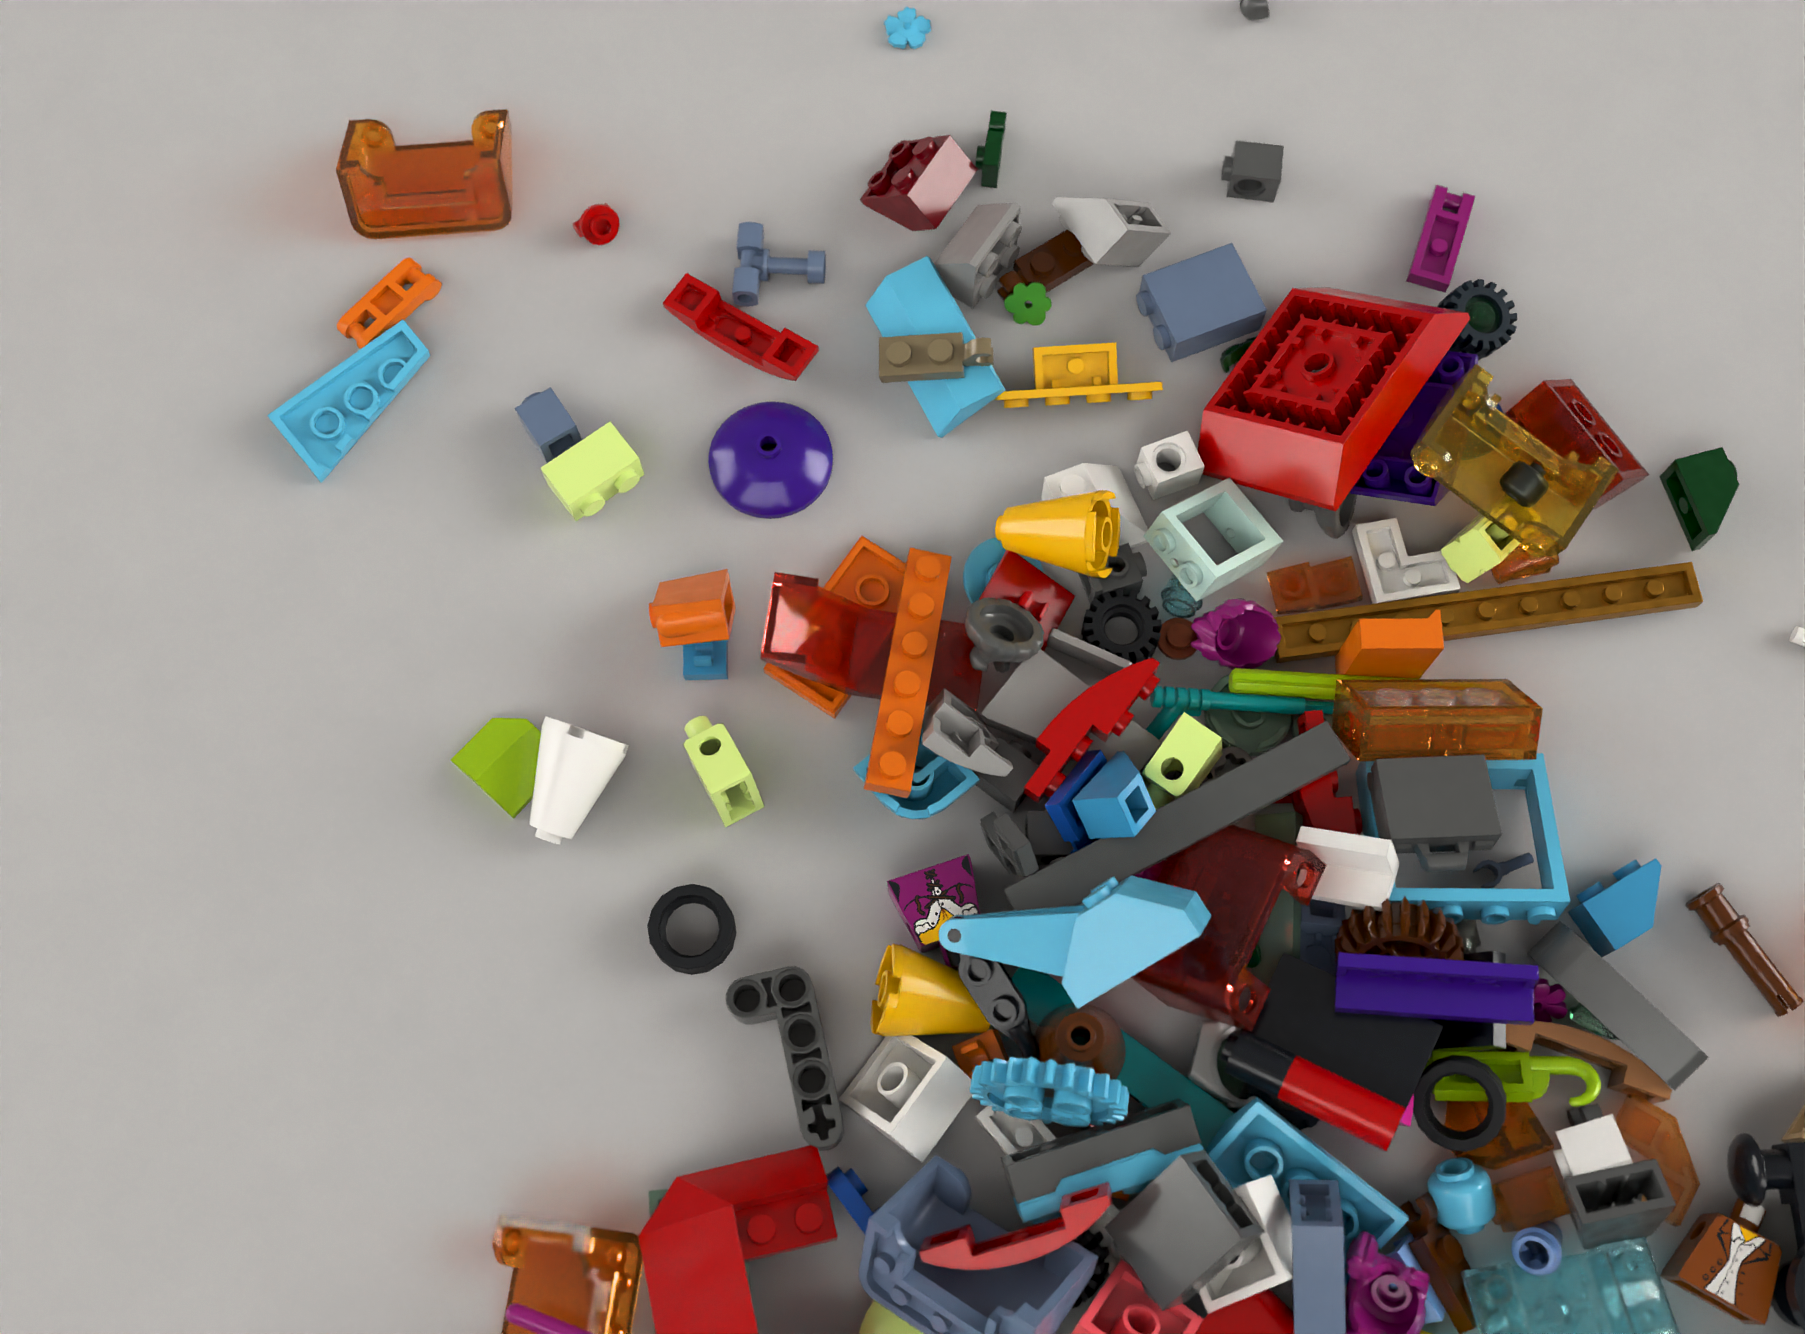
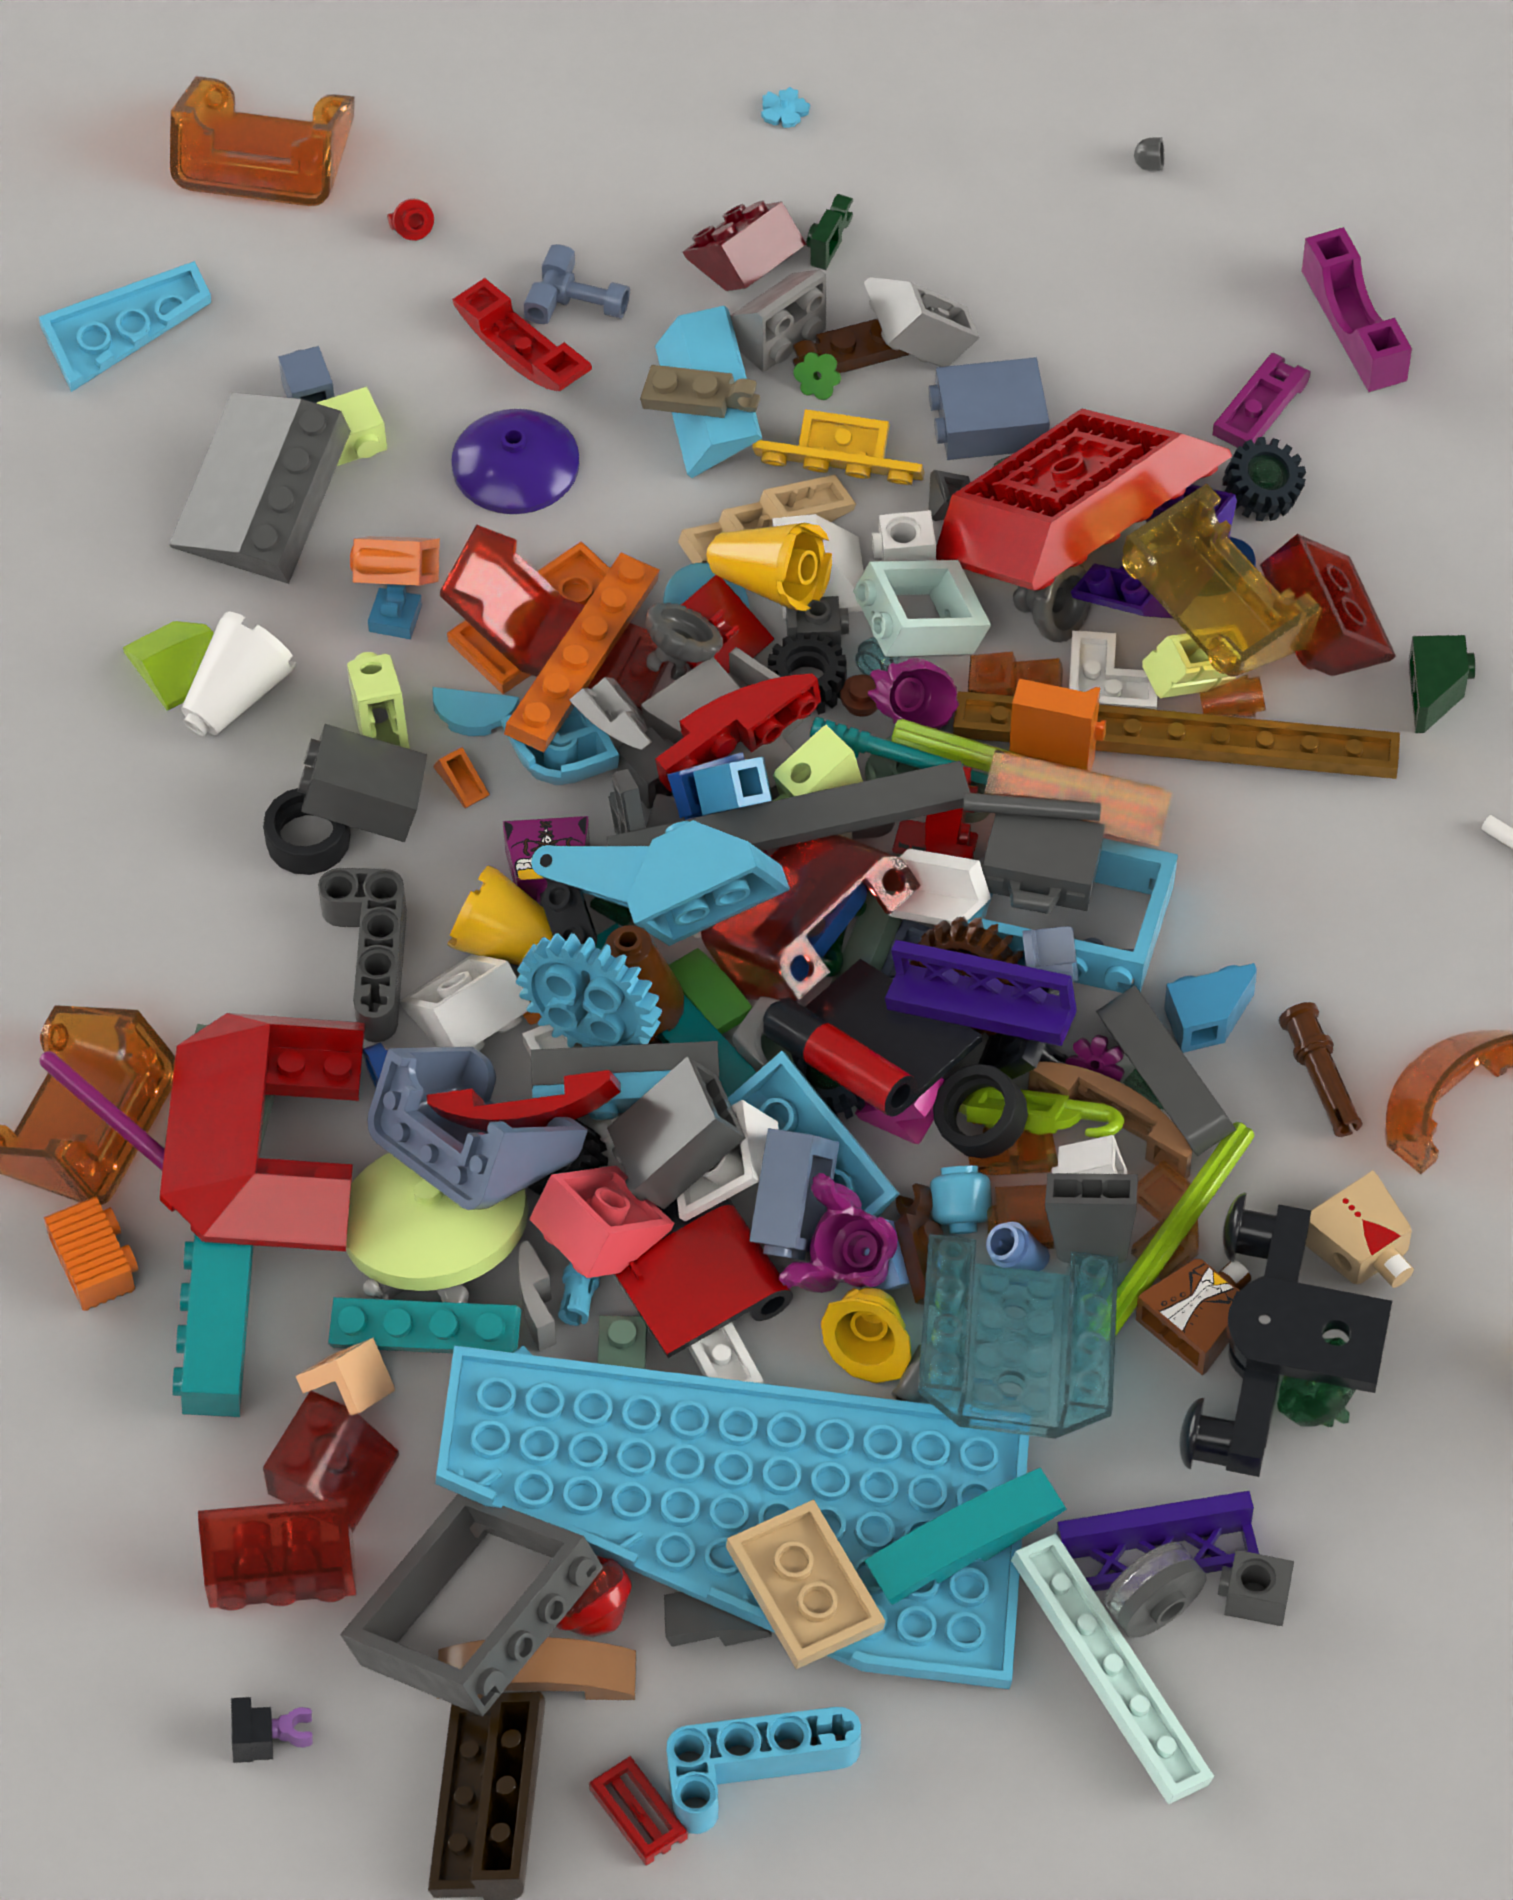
camera: 15 degrees right, 15 degrees down
(388, 302) = (186, 245): orange plate -> none
(537, 552) = (262, 483): none -> slope
(737, 873) = (362, 782): none -> dark grey brick
(813, 749) = (472, 712): none -> medium azure tile
(824, 826) = (461, 777): none -> orange piece
(1022, 477) = (816, 496): none -> tan slope
(1144, 1017) = (711, 990): none -> bright green slope
(1187, 401) = (941, 489): none -> dark grey slope
(1253, 171) = (1089, 303): dark grey brick -> none
(1413, 756) = (1031, 806): none -> dark grey bar
(1469, 96) = (1336, 278): none -> magenta arch
(1483, 922) = (1051, 950): none -> sand blue panel
(1525, 483) = (1240, 615): pearl dark grey piece -> none
(1681, 1159) = (1180, 1221): none -> lime axle

